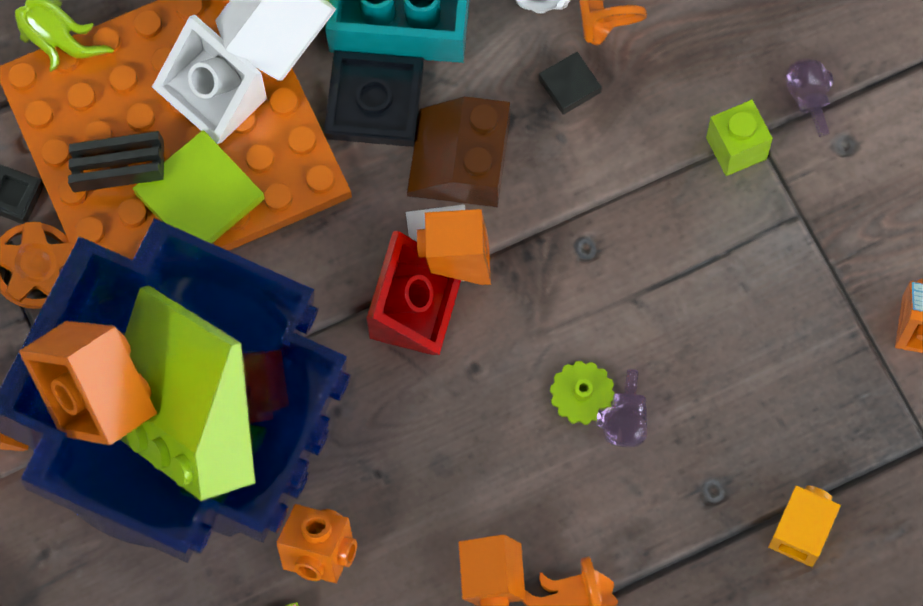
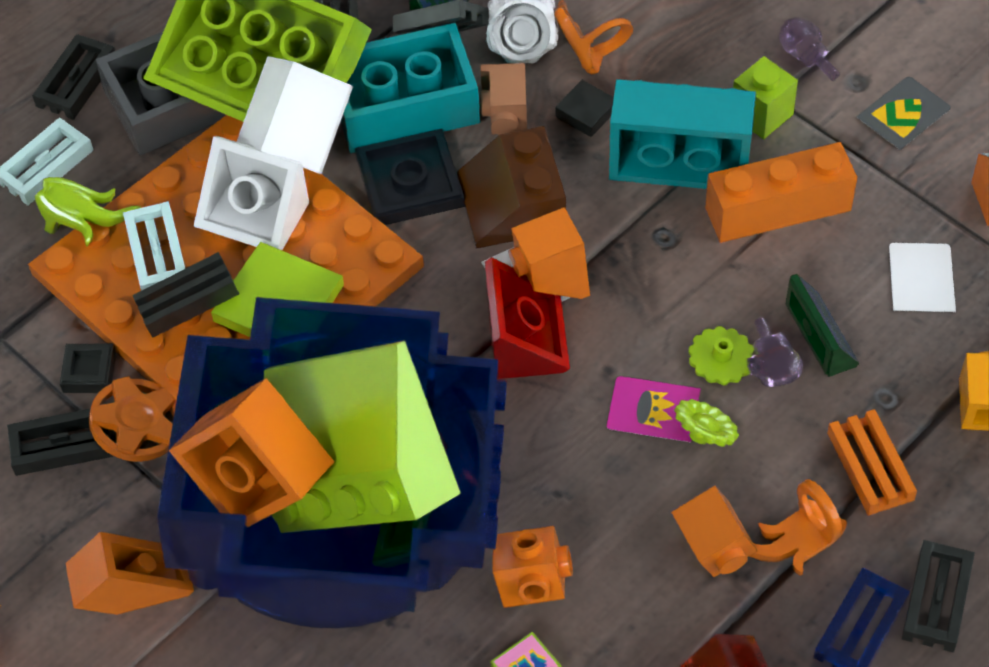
camera: 20 degrees left, 15 degrees down
(114, 61) = (148, 214): none -> light aqua tile
(494, 48) = (504, 96): none -> nougat brick
(498, 422) = (649, 408): none -> dark pink sticker
(534, 459) = (706, 423): none -> lime piece
(636, 155) = (678, 132): none -> teal brick
(668, 510) = (894, 464): none -> orange tile
(685, 399) = (819, 327): none -> dark green slope
(708, 247) = (780, 192): none -> orange brick
(806, 379) = (922, 277): none -> white sticker
(874, 196) = (904, 112): none -> dark grey sticker

